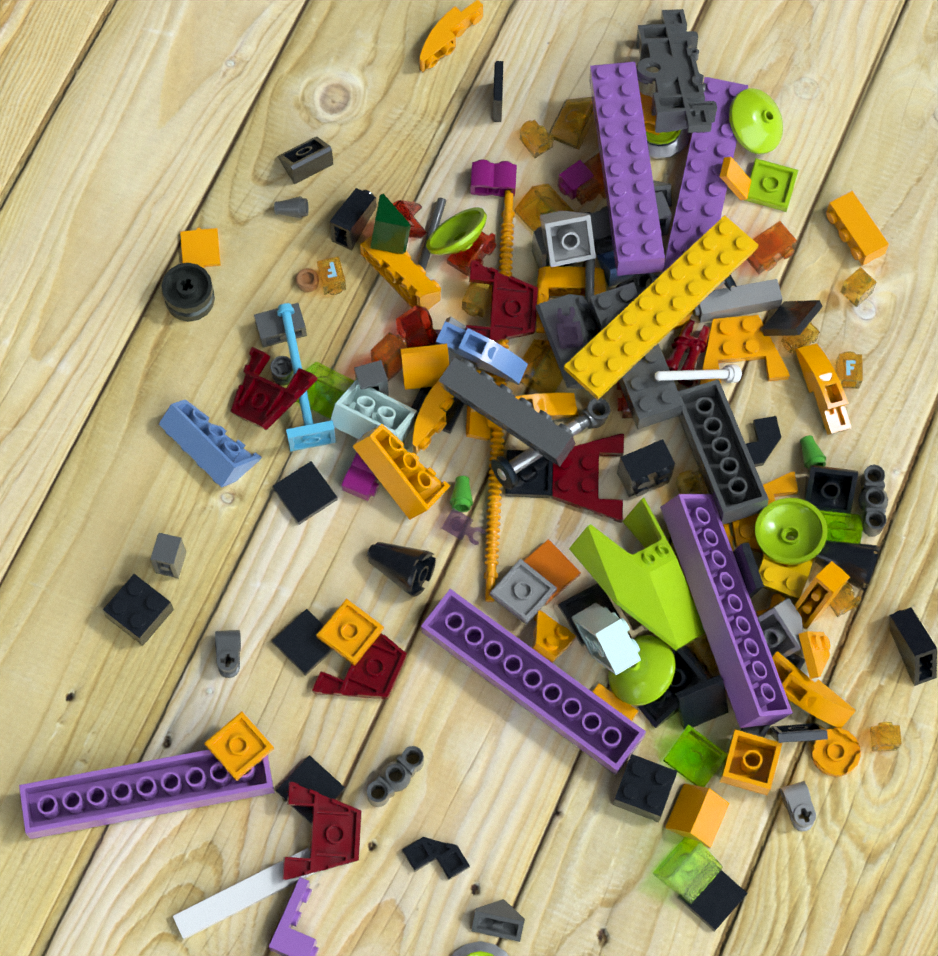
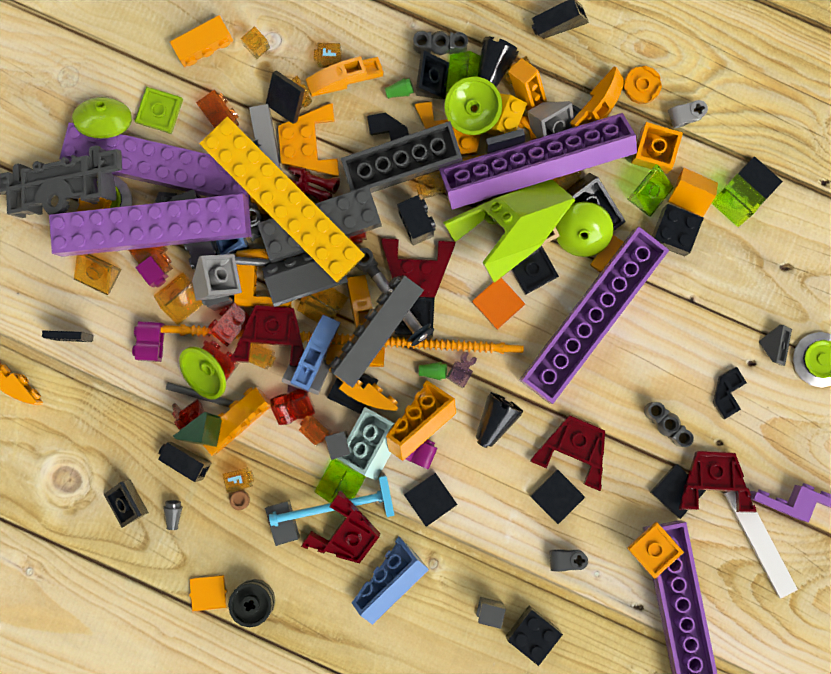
camera: 85 degrees left, 15 degrees up
(279, 366) = (323, 523): dark grey wheel -> none
(350, 632) = (553, 461): light orange tile -> none
(424, 365) = (326, 399): light orange tile -> none
(514, 260) = (229, 324): none -> clear red bracket
(523, 591) = (518, 321): light grey tile -> none
(535, 138) = (111, 305): clear yellow brick -> none
(550, 637) = (556, 300): light orange wing -> none
(568, 332) = (301, 278): clear purple plate -> none
(607, 638) = (566, 254): light aqua brick -> none
(702, 702) = (610, 183): black tile -> none
(728, 373) = (330, 151): white piece -> none
(735, 178) = (156, 137): light orange tile -> none
(798, 732) = (636, 108): black tile -> none
(815, 651) = (565, 93): light orange wing -> none
(885, 737) = (633, 45): clear yellow brick -> none

